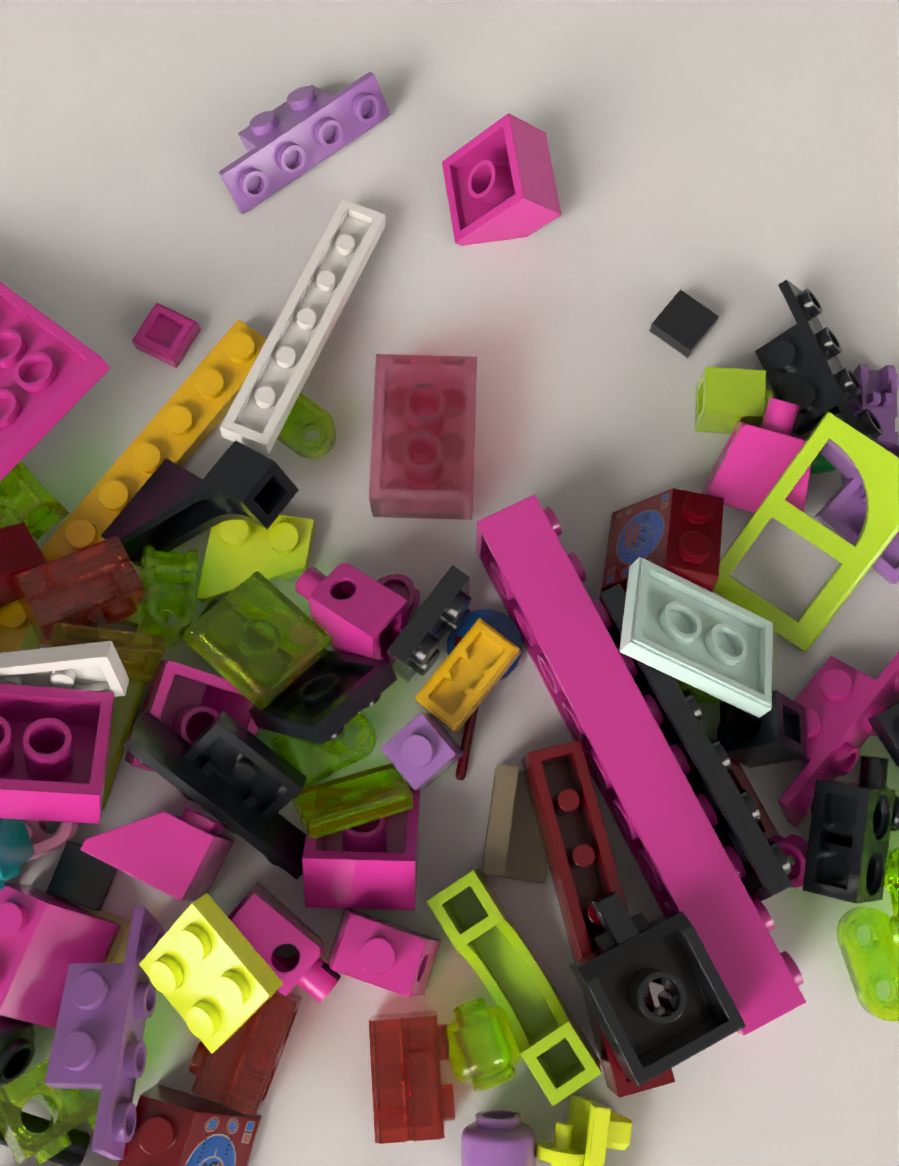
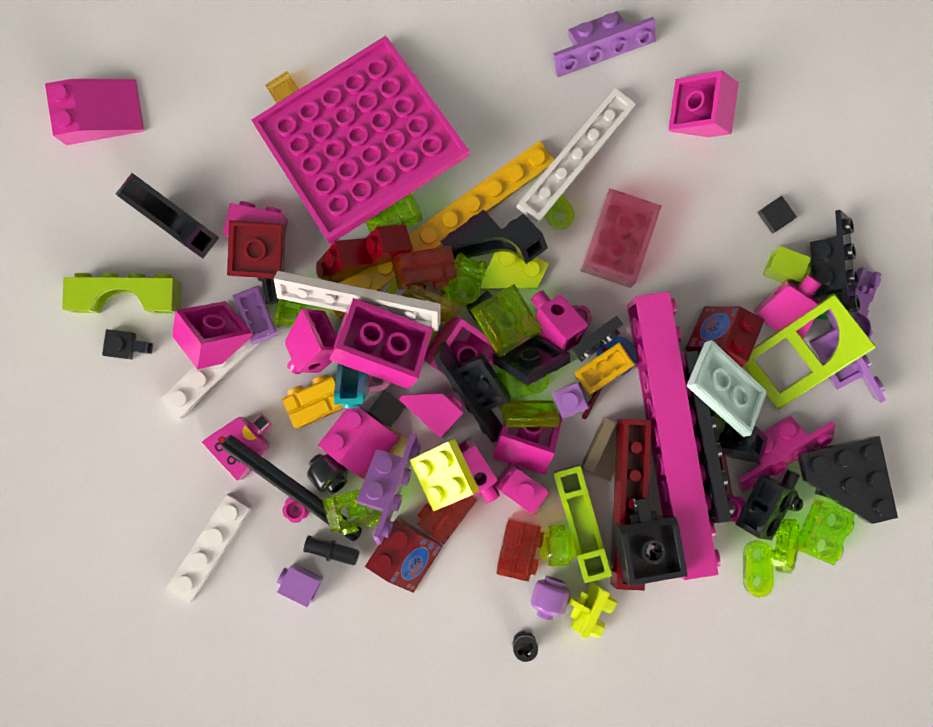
camera: 20 degrees right, 10 degrees up
(166, 335) = (498, 136): dark pink tile -> none

